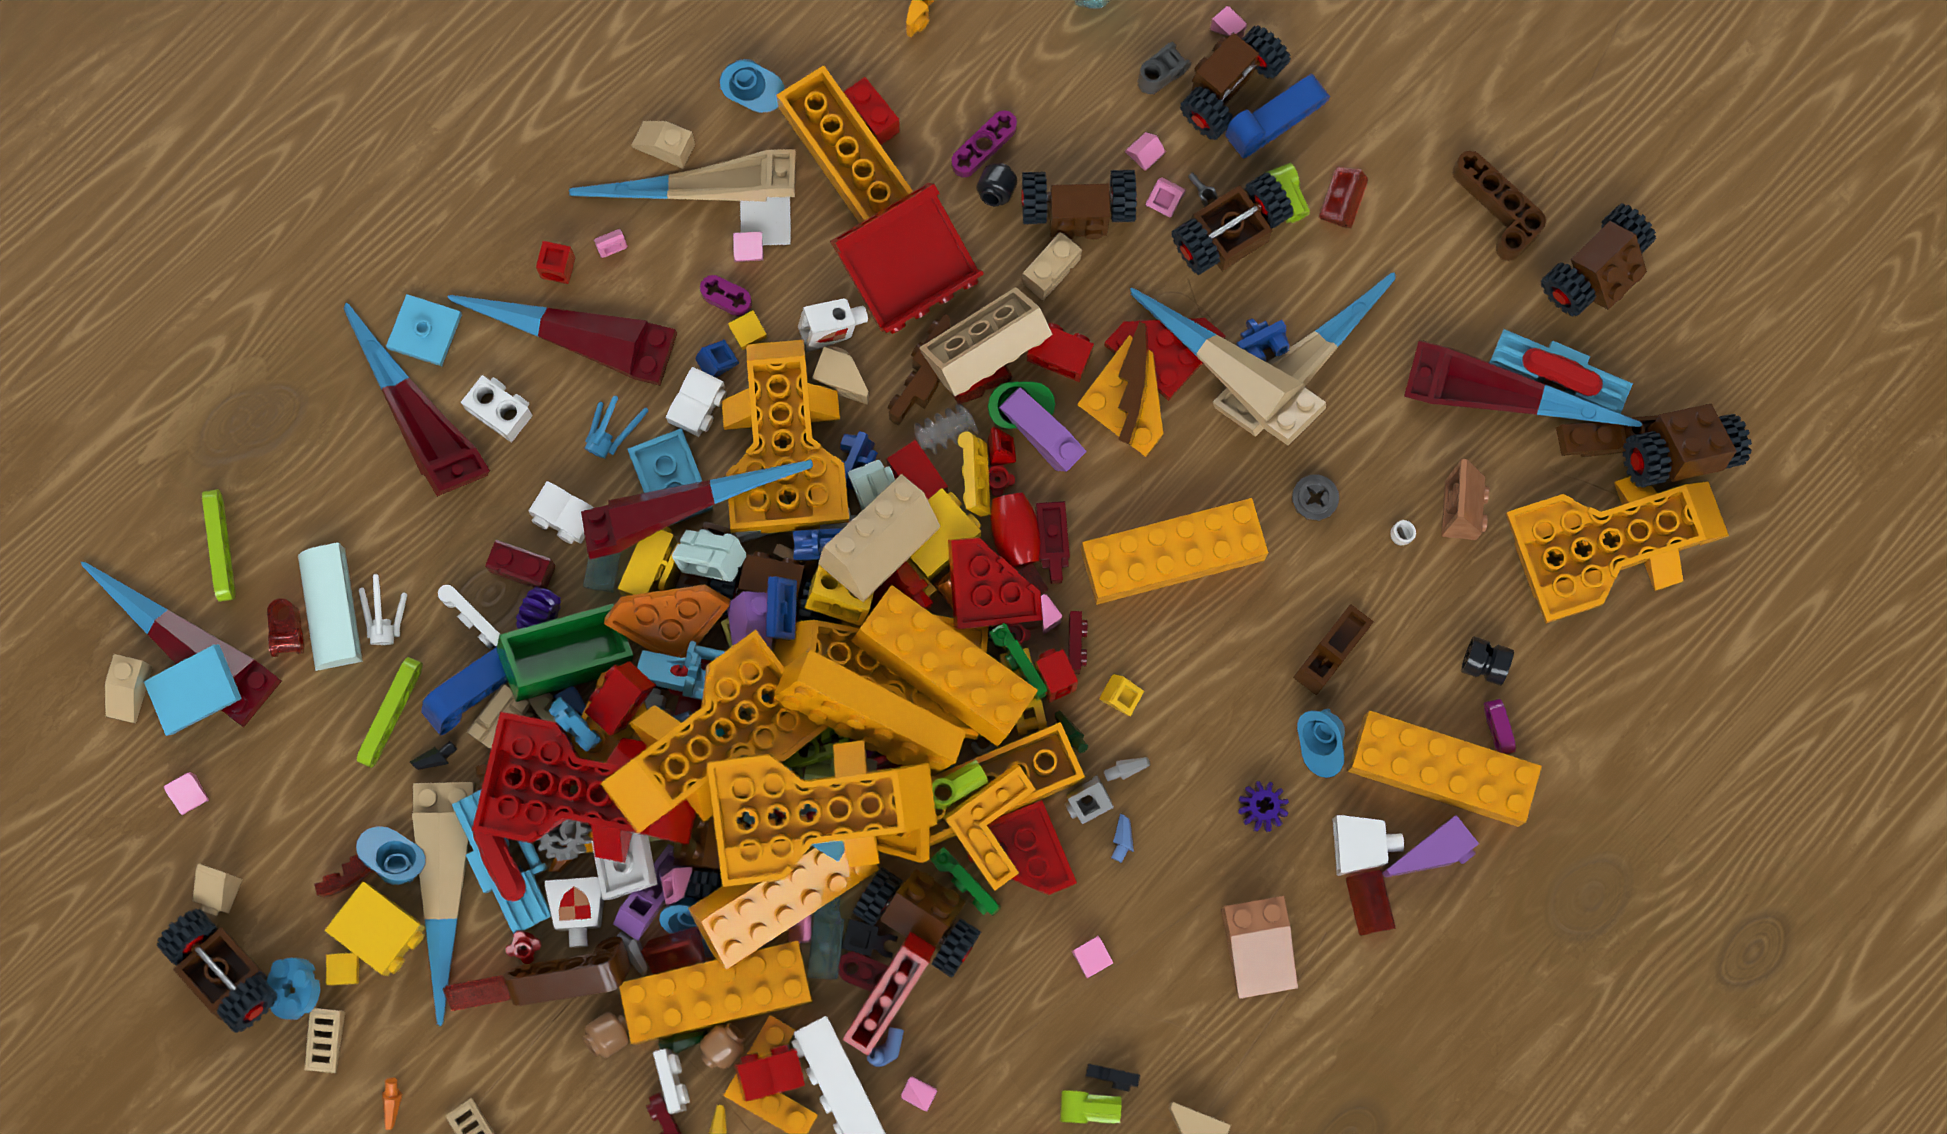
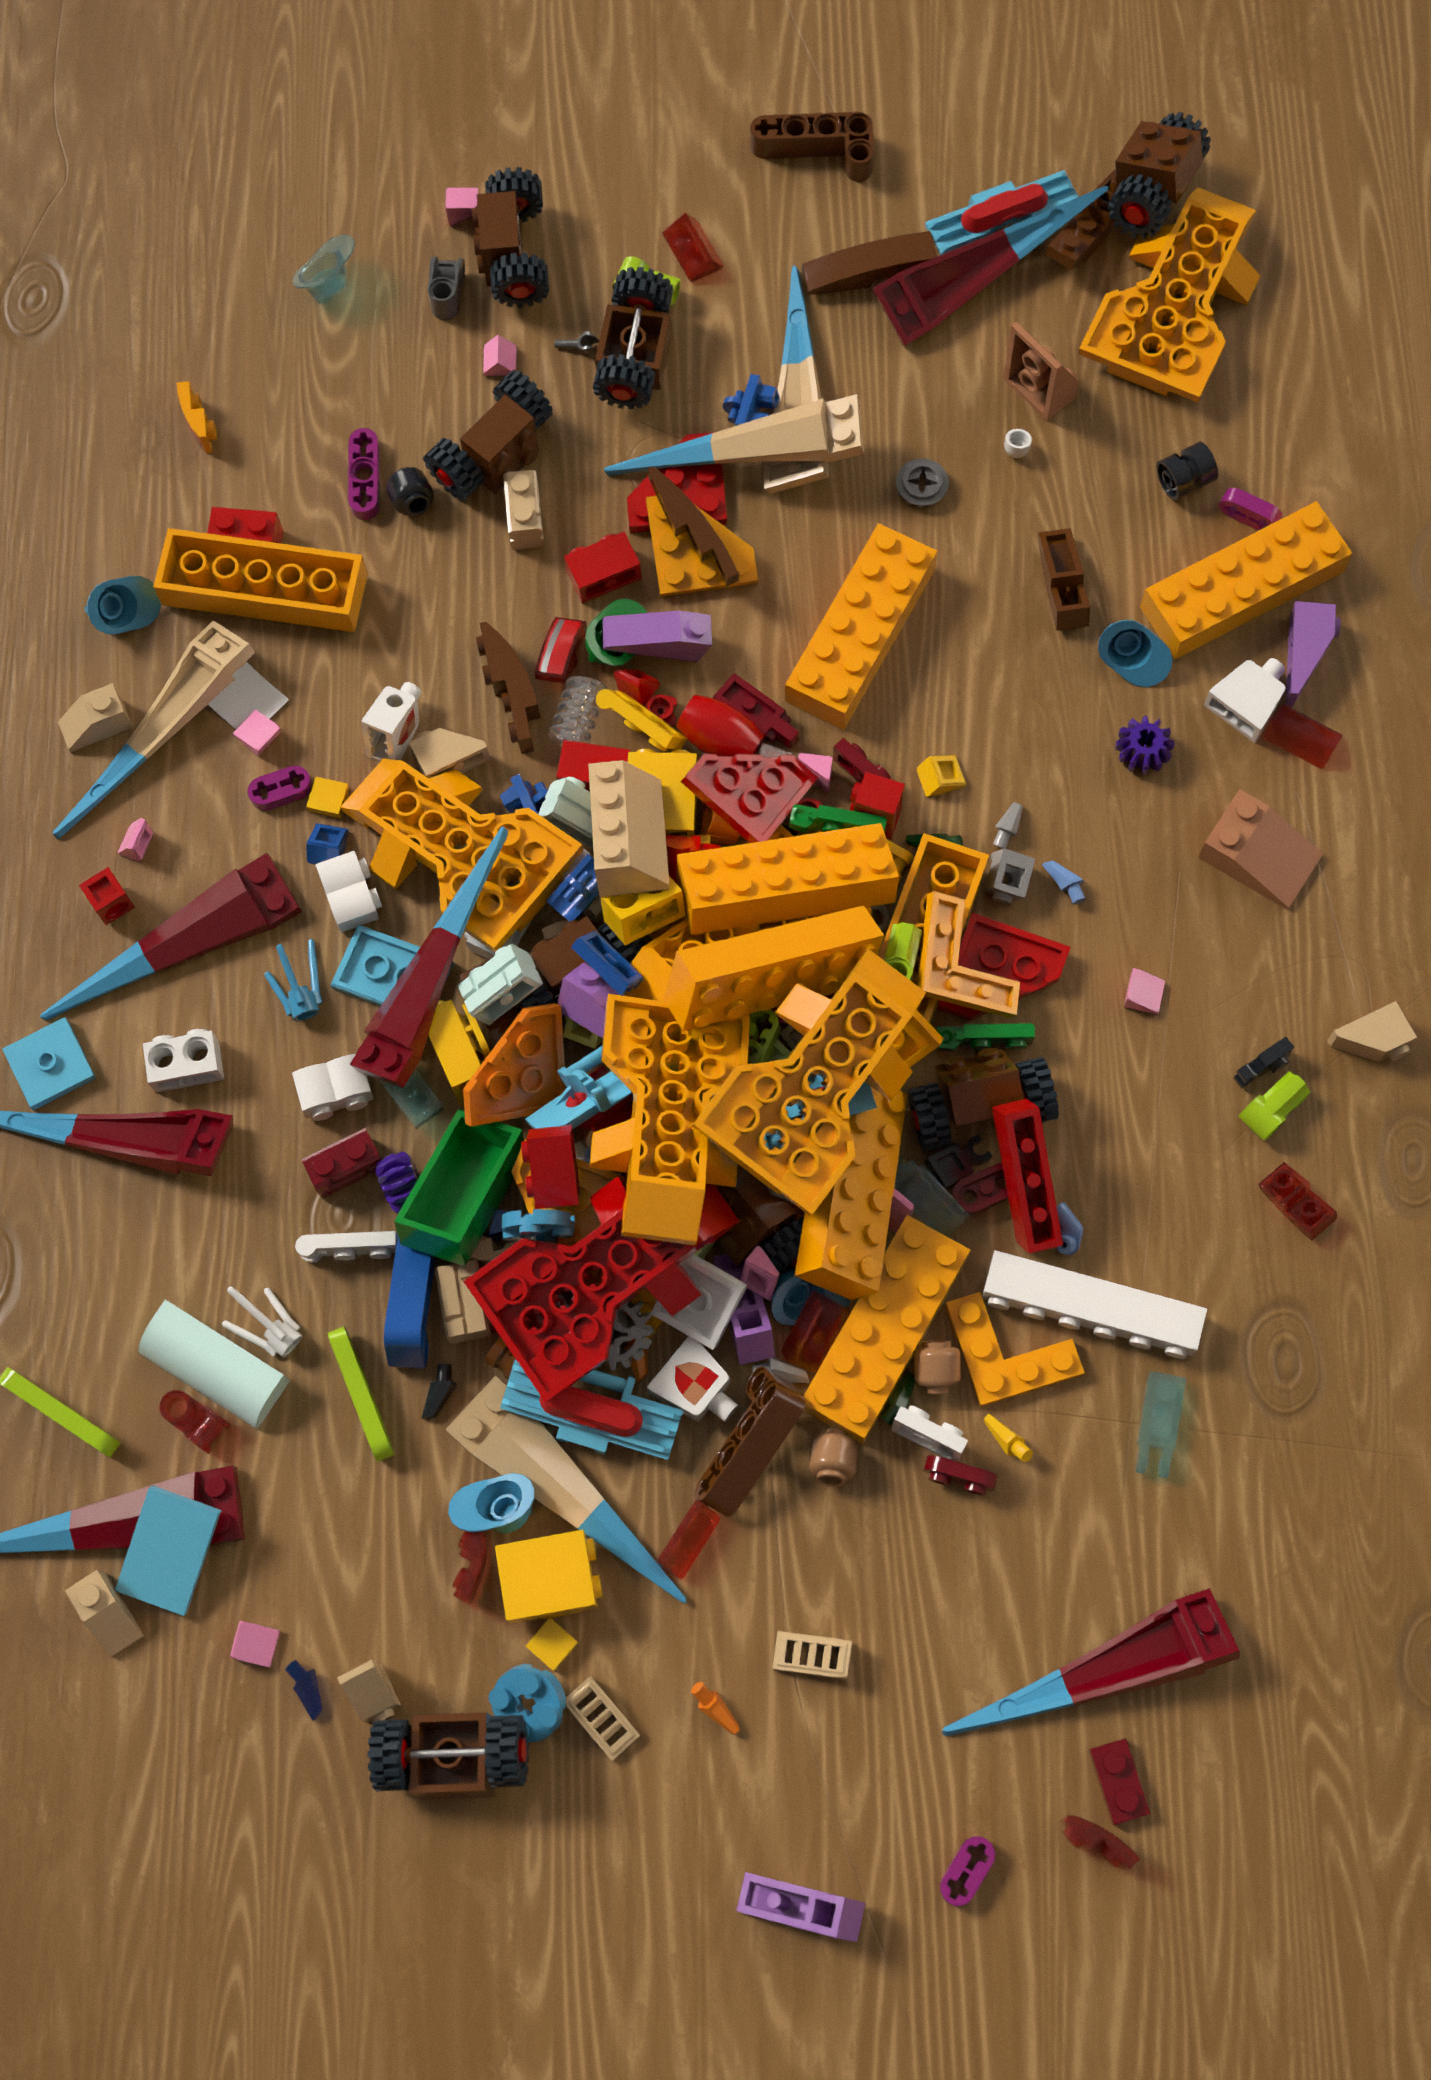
camera: 40 degrees left, 5 degrees down
(187, 848) = (306, 1688): none -> clear blue bar
(526, 939) = (676, 1462): red plate -> none
(769, 1074) = (1001, 1343): red brick -> none
(906, 259) = (401, 612): red panel -> none
(918, 1093) = (1133, 1236): bright pink slope -> none
(986, 341) = (538, 607): tan slope -> none
(1165, 197) = (554, 378): bright pink slope -> none
(1254, 130) = (572, 251): blue beam -> none
(1440, 318) = (866, 262): none -> reddish brown slope
(1604, 266) = (948, 107): brick -> none

